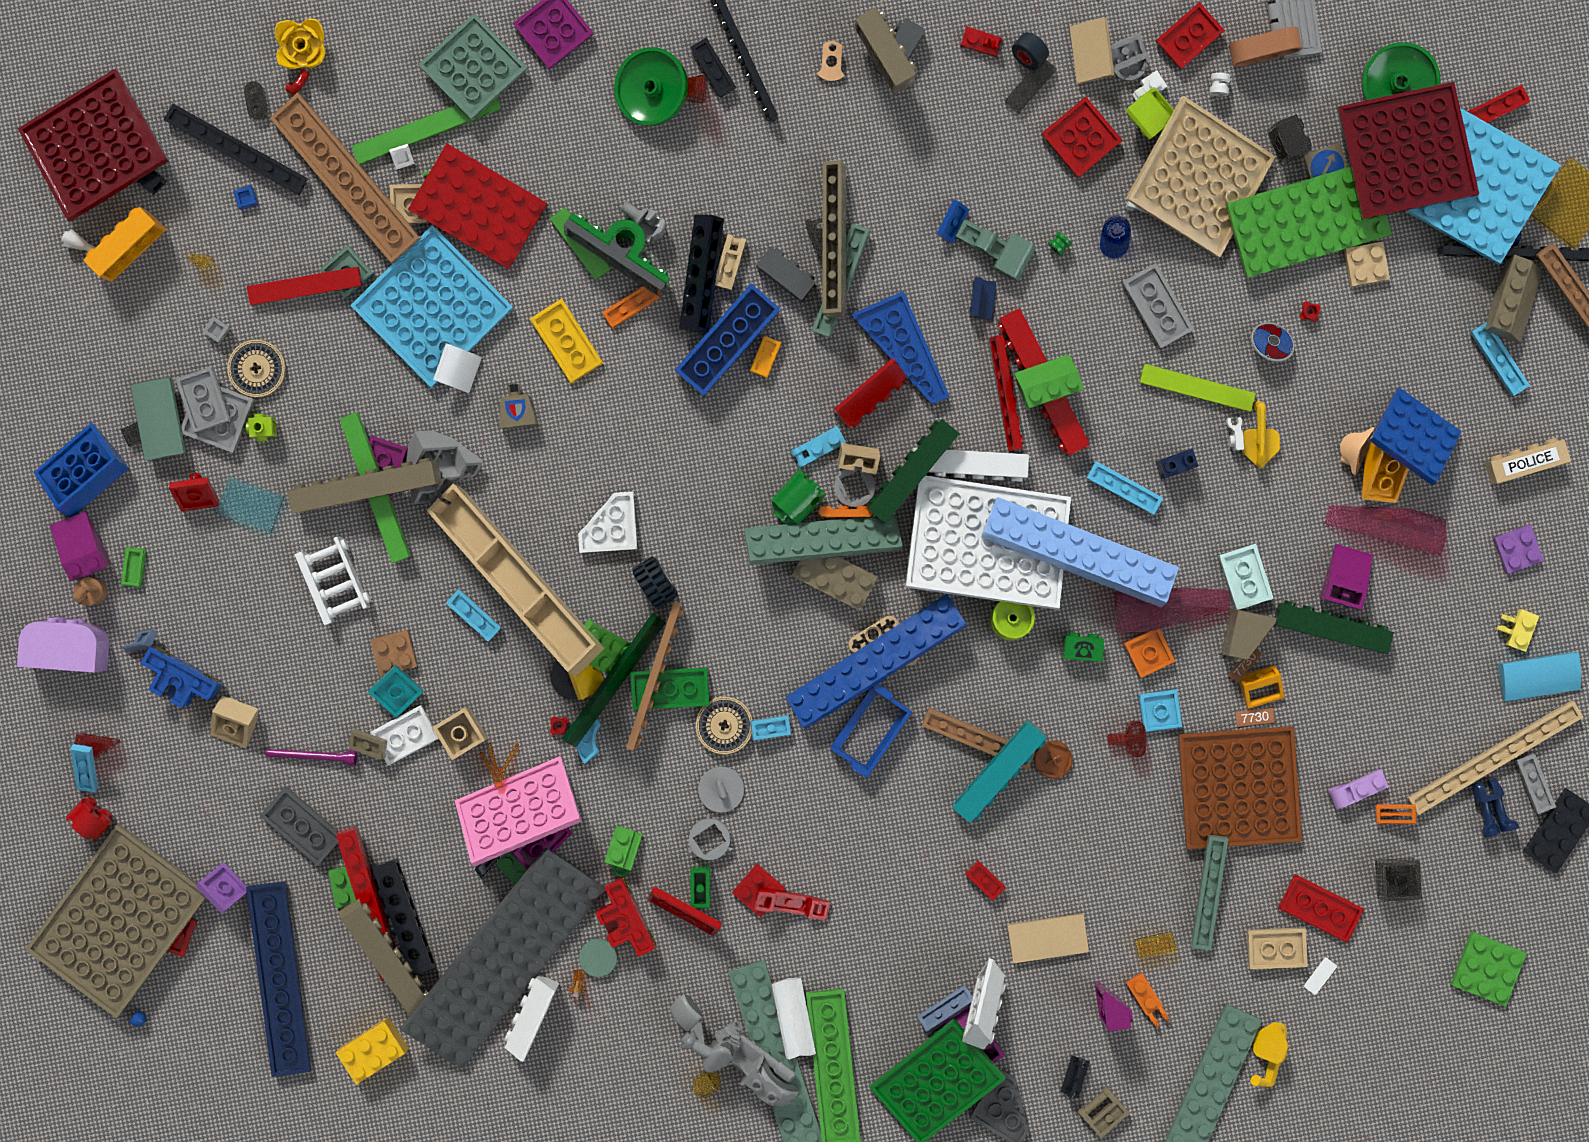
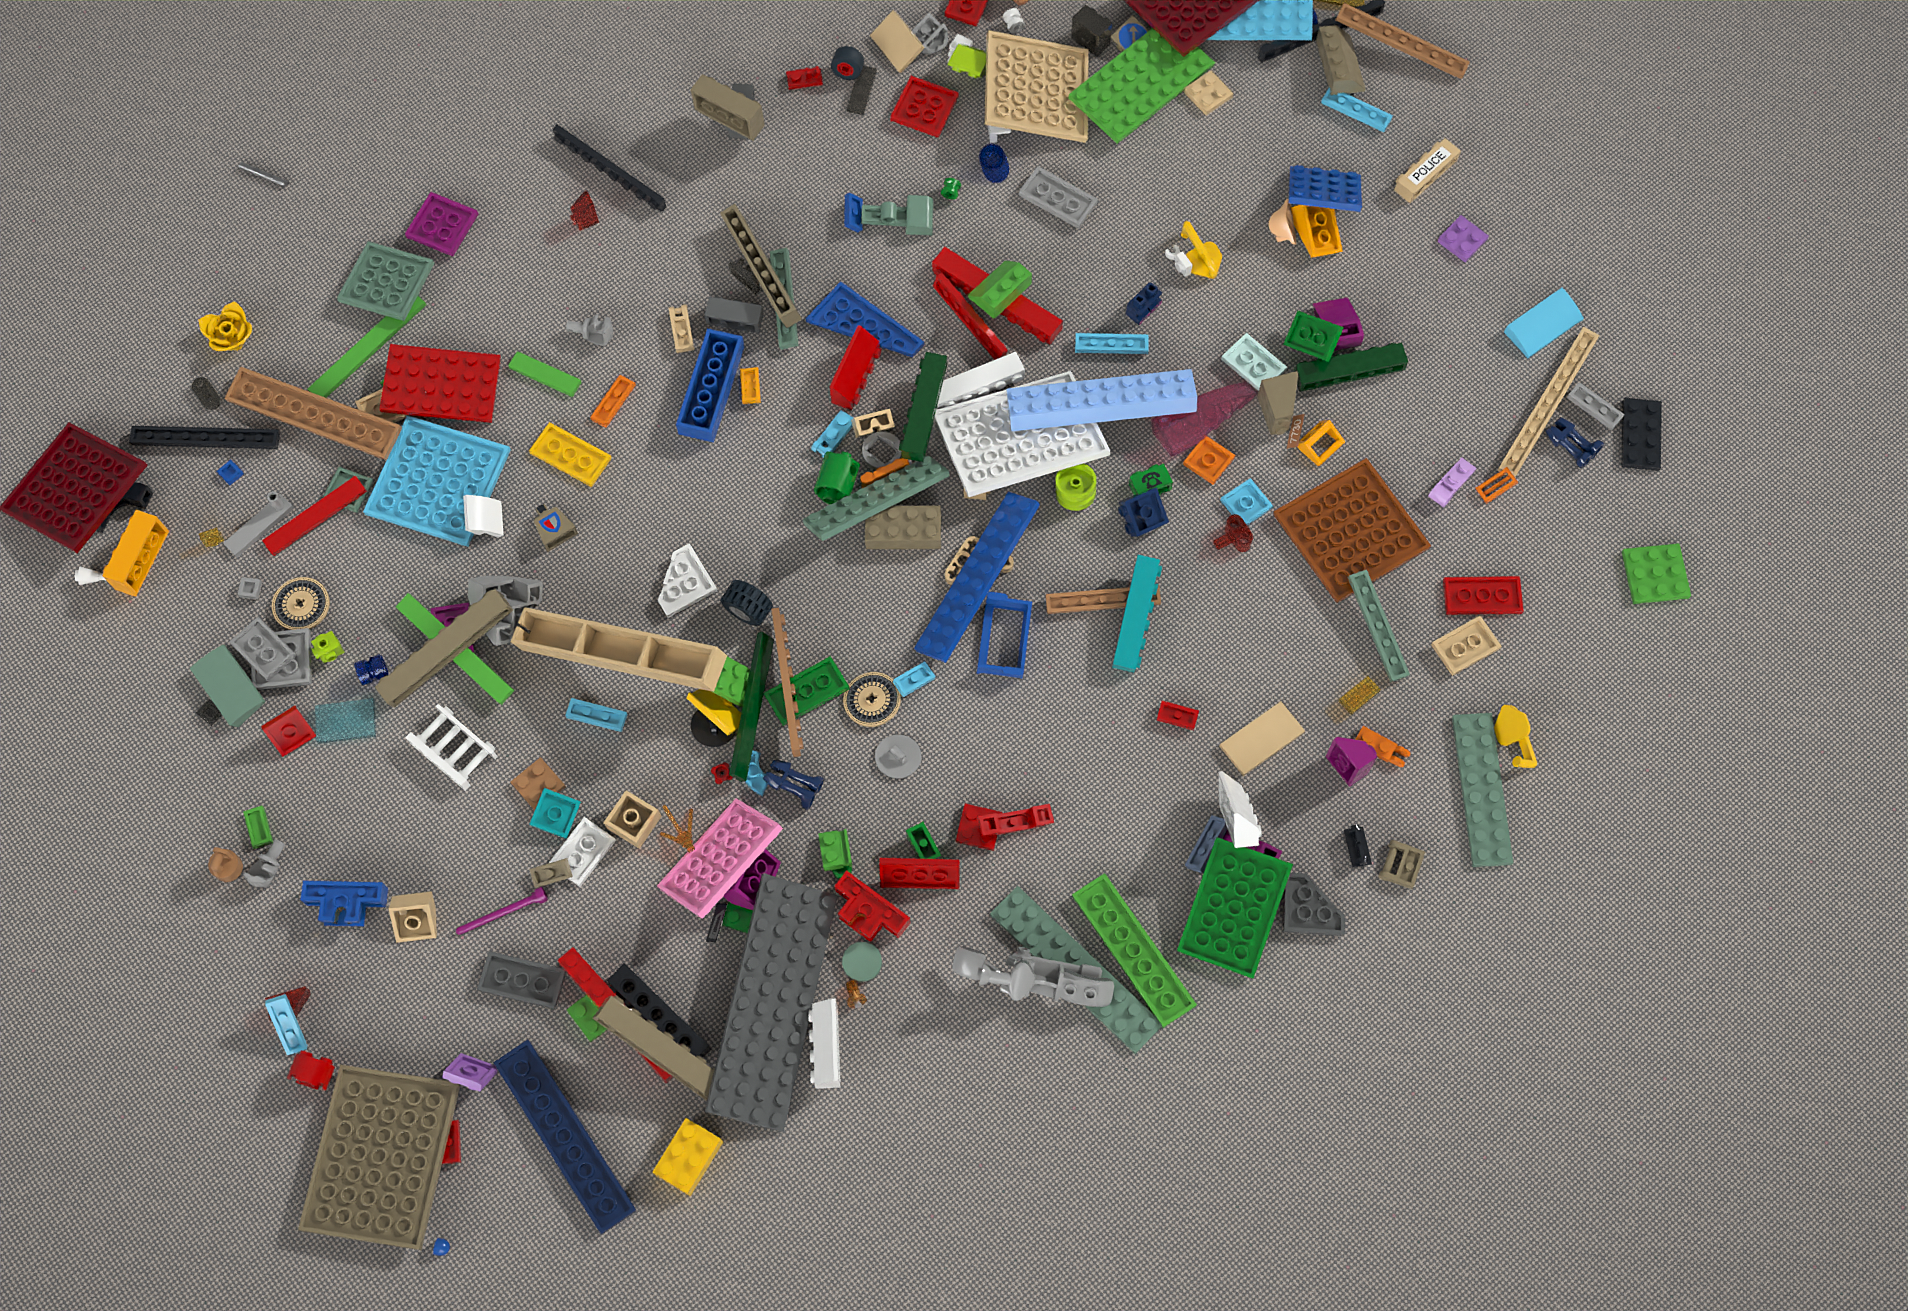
camera: 30 degrees left, 20 degrees down
(63, 645) = (219, 923): lavender brick -> none
(79, 546) = (198, 828): magenta slope -> none
(80, 471) = (173, 764): blue slope -> none
(123, 611) = (265, 870): none -> light grey piece
(143, 641) = (292, 886): sand blue tile -> none
(250, 267) = (259, 524): none -> light grey piece
(292, 469) = (371, 669): none -> clear blue wheel
(299, 82) = (238, 361): red arm -> none
(401, 156) = (355, 376): white plate -> none
(601, 763) = (784, 768): none -> dark blue piece
(623, 259) = (580, 357): piece -> none
(636, 84) = (546, 226): green dish -> none
(701, 273) = (661, 345): black brick -> none
(706, 1084) = (1024, 1025): clear yellow head -> none
(713, 67) = (600, 196): black plate -> none
(717, 851) = (898, 793): light grey piece -> none
(793, 1018) = (1073, 921): white panel -> none
(831, 73) = (693, 153): light nougat piece -> none
(982, 299) = (910, 259): dark blue panel -> none
(1053, 759) = (1178, 586): dark orange tile -> none
(1058, 676) = (1143, 512): none -> dark blue plate
(1197, 388) = (1126, 242): lime tile -> none
(1255, 717) = (1330, 470): nougat sticker -> none
(1272, 342) = (1167, 179): shield -> none
(1314, 585) = (1313, 336): none -> green plate
(1315, 308) = (1184, 141): red plate -> none
(1320, 976) = (1518, 652): white sticker -> none
(1393, 525) = (1351, 269): clear pink wedge -> none
(1398, 879) = (1532, 534): clear smoke brick -> none
(1521, 630) = (1506, 297): light yellow hinge -> none

